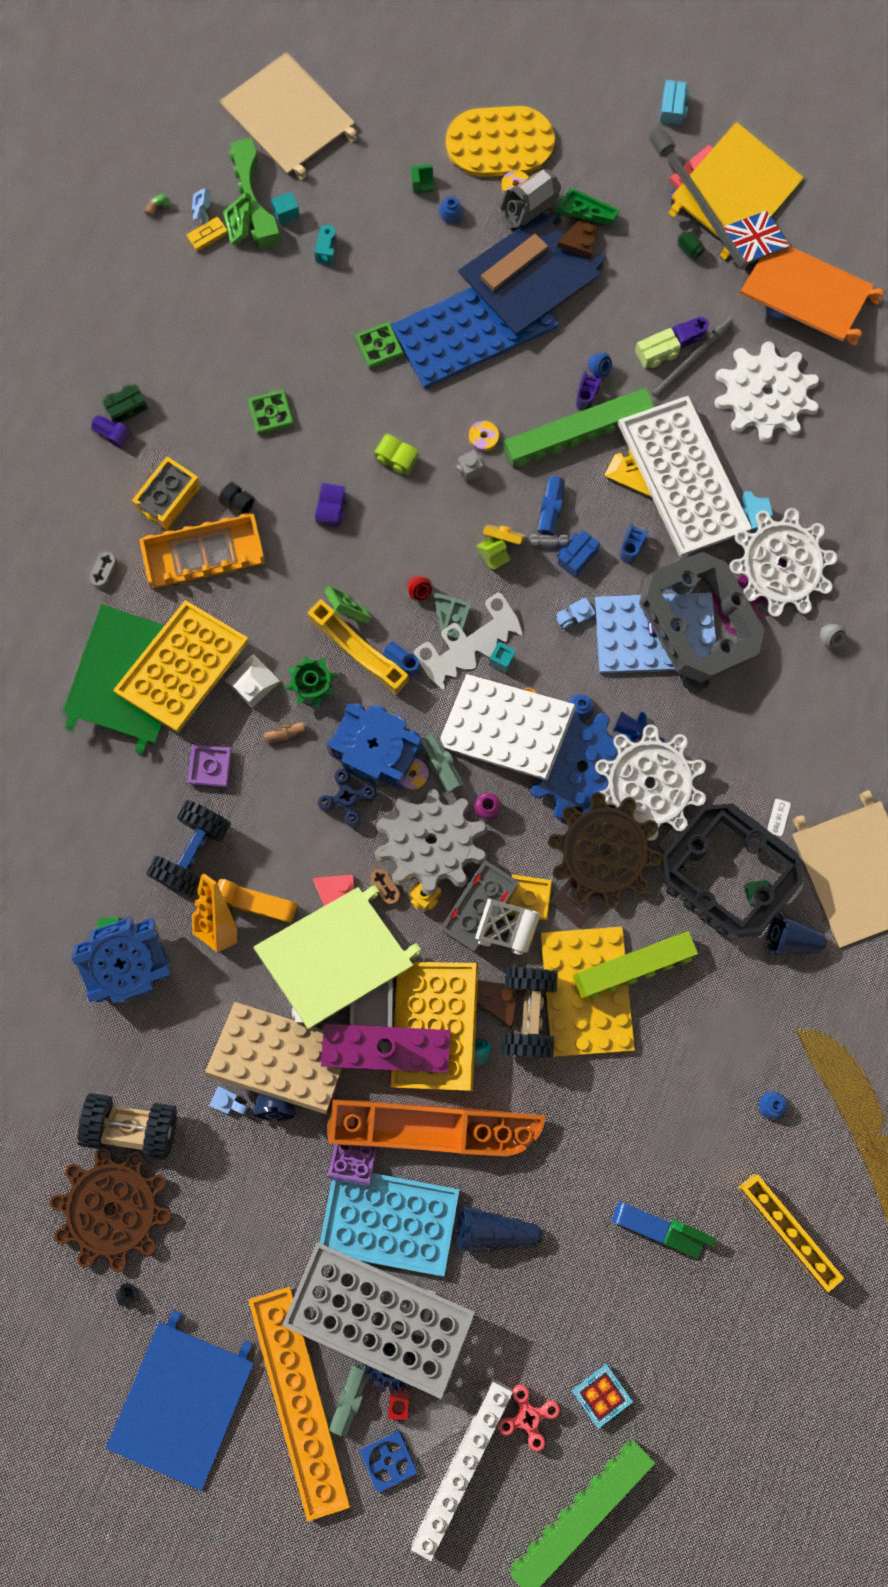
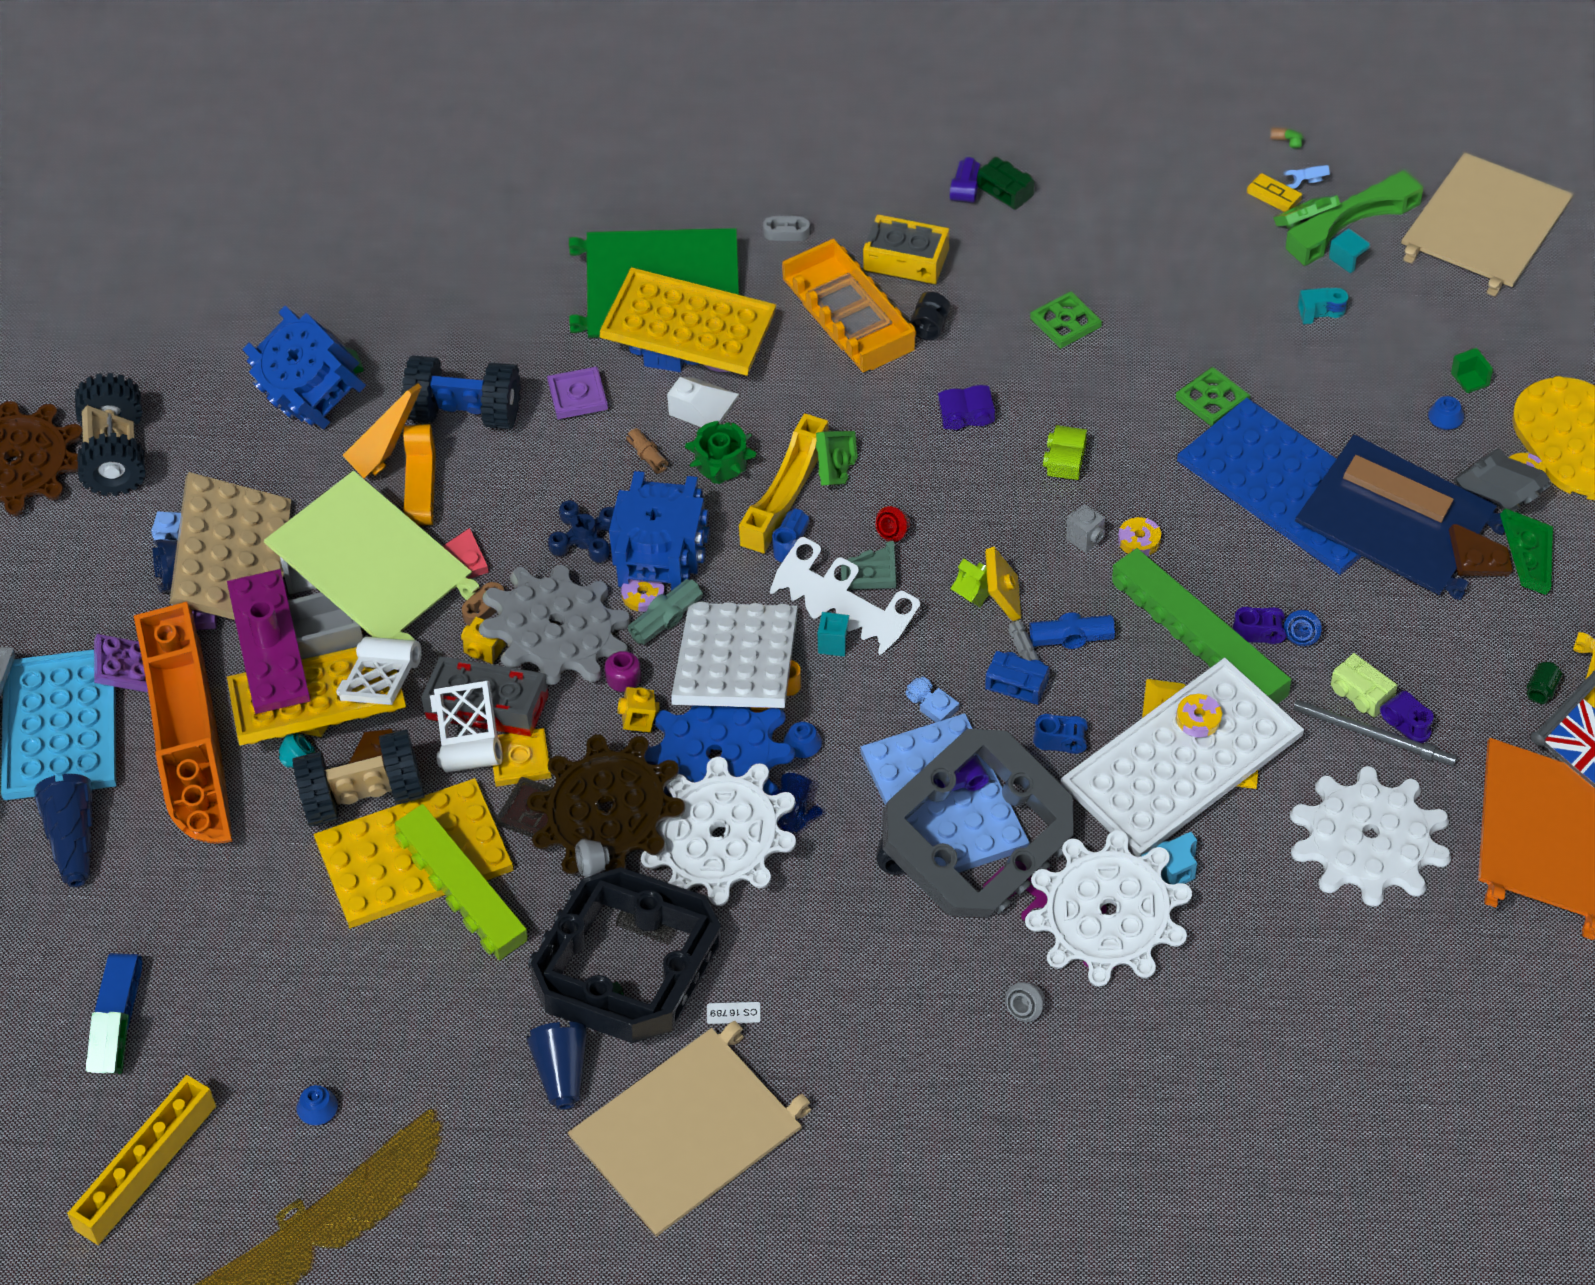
camera: 75 degrees right, 25 degrees down
(426, 969) = (384, 656): none -> white piece
(524, 805) = (638, 709): none -> yellow brick
(651, 871) = (591, 857): none -> light grey cone
(662, 460) = (1195, 725): none -> yellow piece

